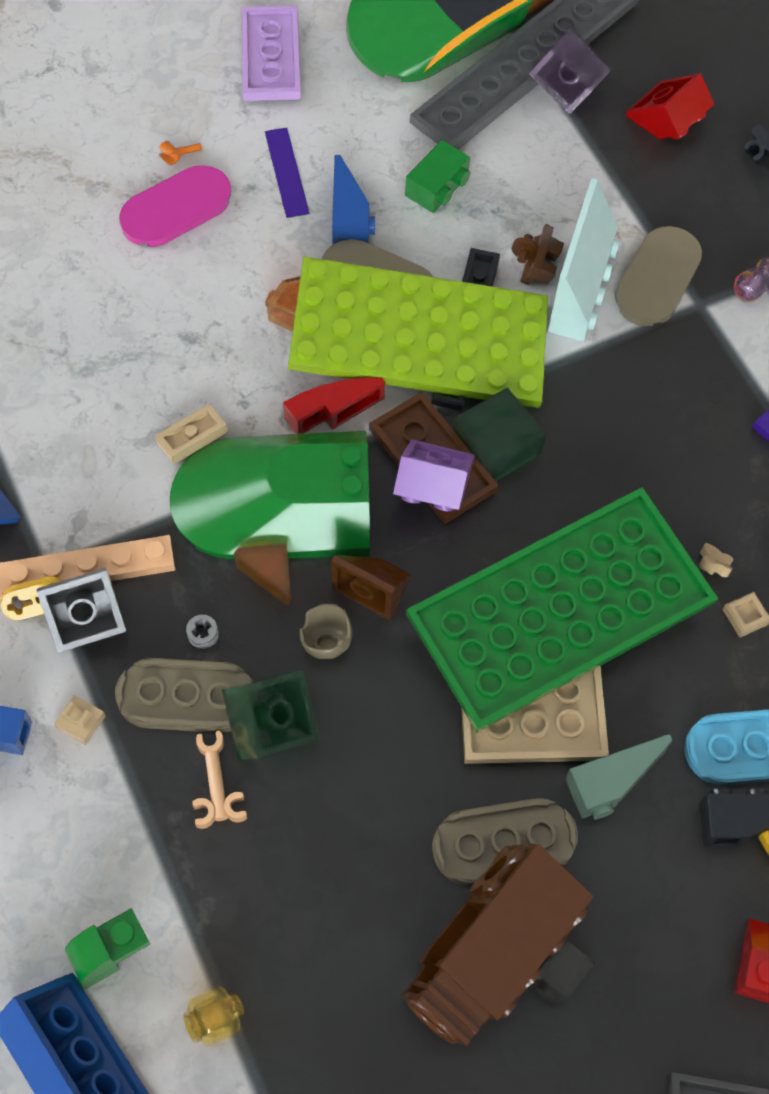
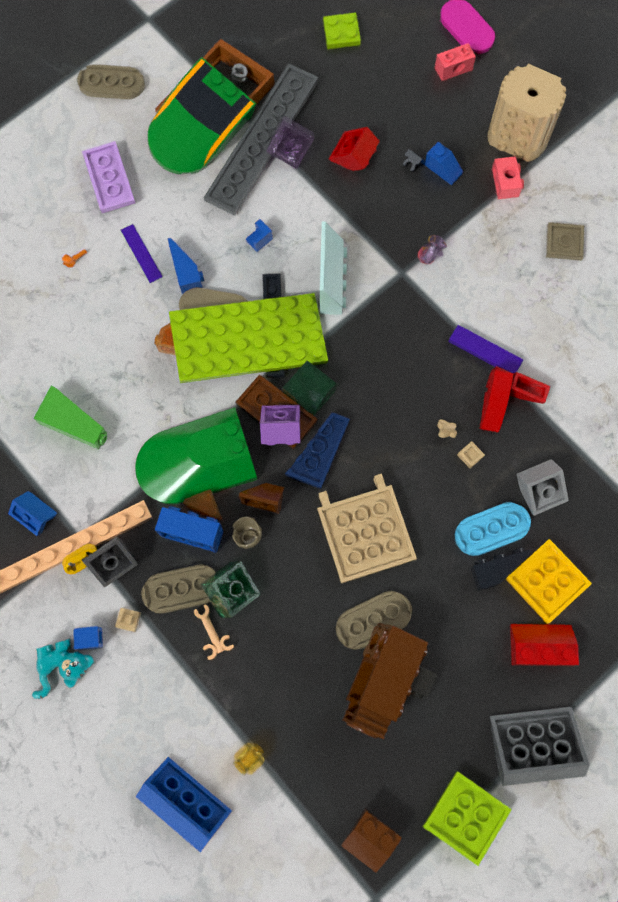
camera: 10 degrees left, 10 degrees up
(88, 377) = (67, 418): none -> bright green slope
(100, 948) = (182, 740): green brick -> none
(175, 206) = (83, 294): dark pink tile -> none
(191, 434) = (137, 436): tan plate -> none
(198, 642) = (184, 549): light grey bush -> none
(232, 597) = (189, 528): none -> blue brick
(332, 403) = (211, 395): red slope -> none
(437, 176) = (230, 233): green brick -> none
(485, 194) = (260, 236): none -> blue panel
(488, 536) = (319, 454): none -> dark blue wing
(534, 254) = (299, 266): reddish brown hips -> none
(560, 608) = (370, 483): green plate -> none
(607, 780) = (420, 571): sand green slope -> none
(658, 276) = (374, 261): dark tan tile -> none

